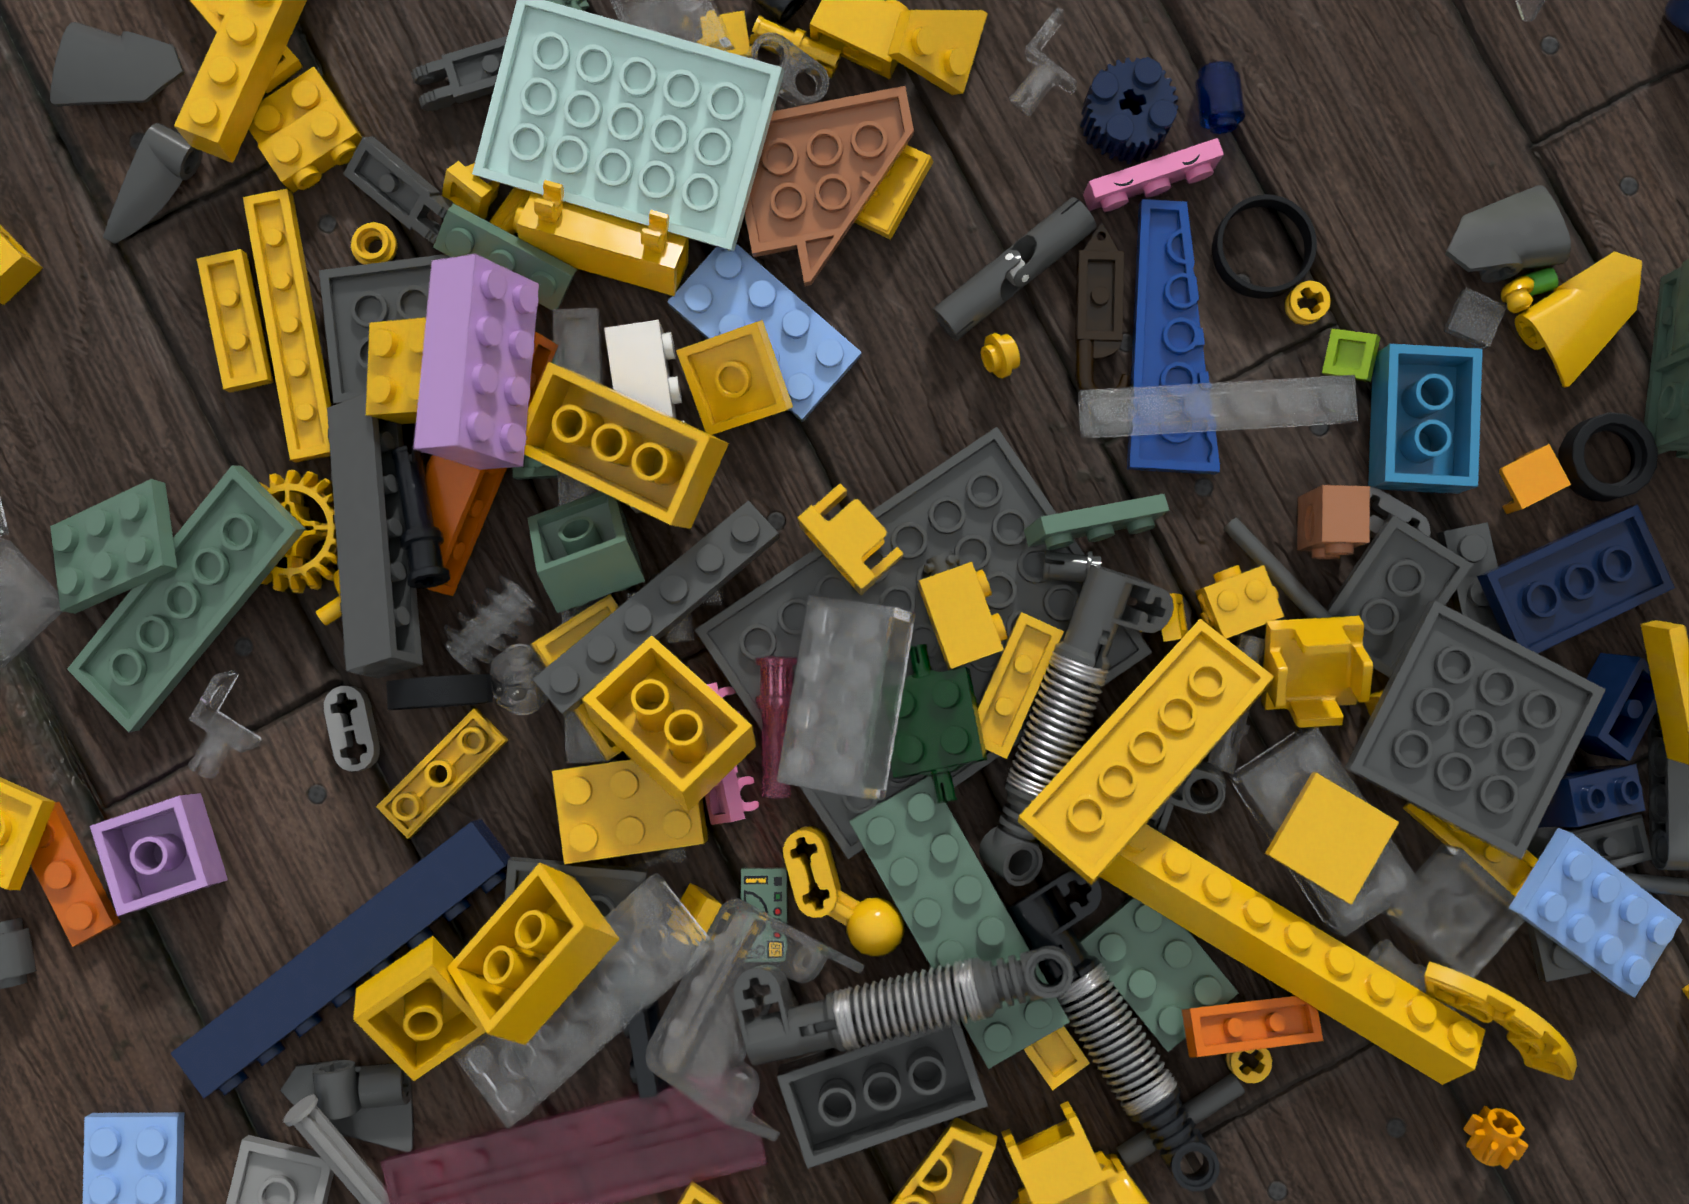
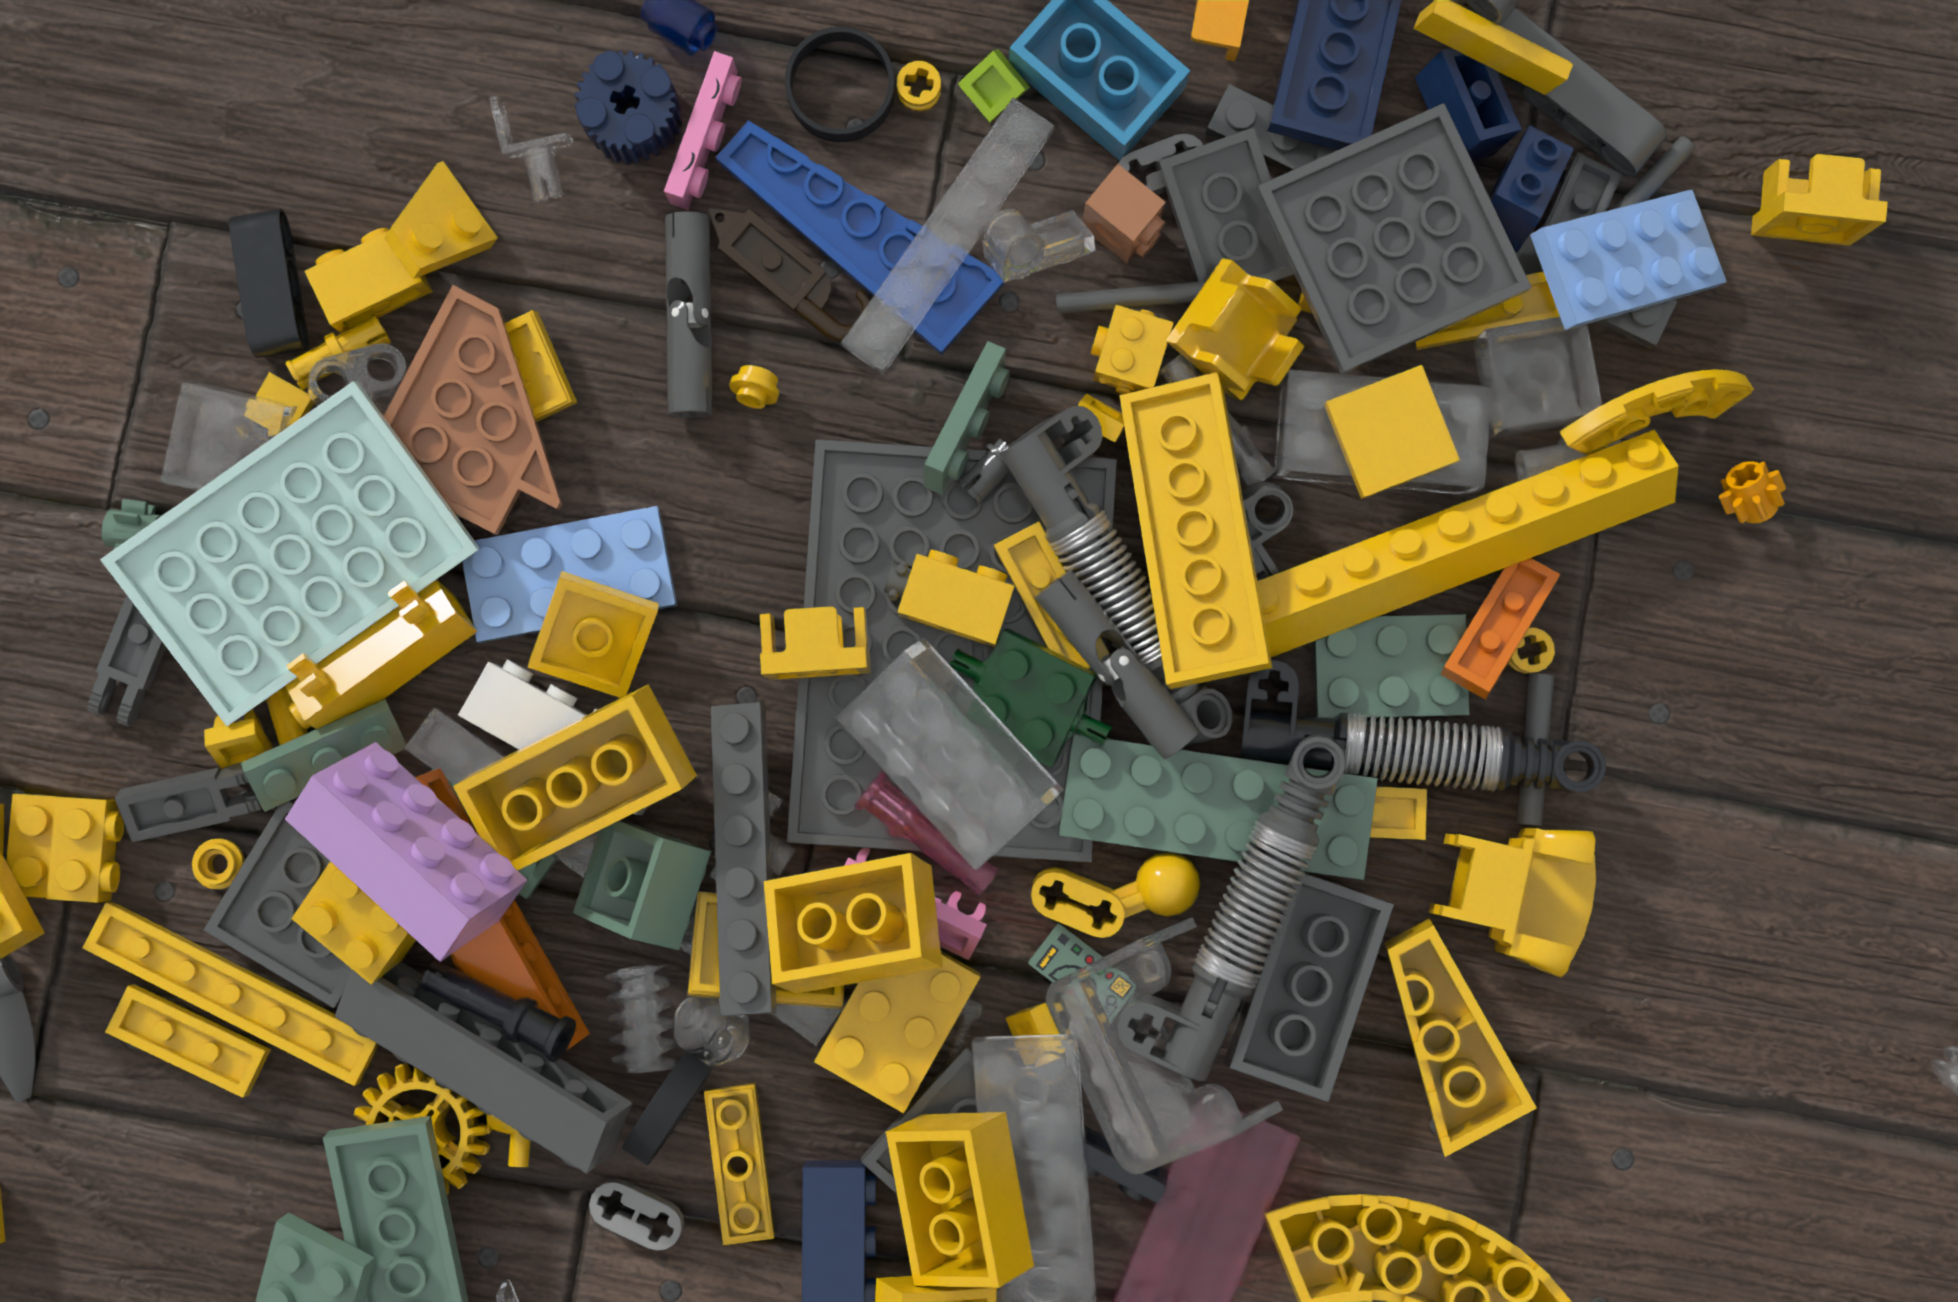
camera: 55 degrees left, 0 degrees up
(999, 791) = (1133, 685): none -> dark grey piece
(1249, 464) = (1022, 248): none -> clear plate

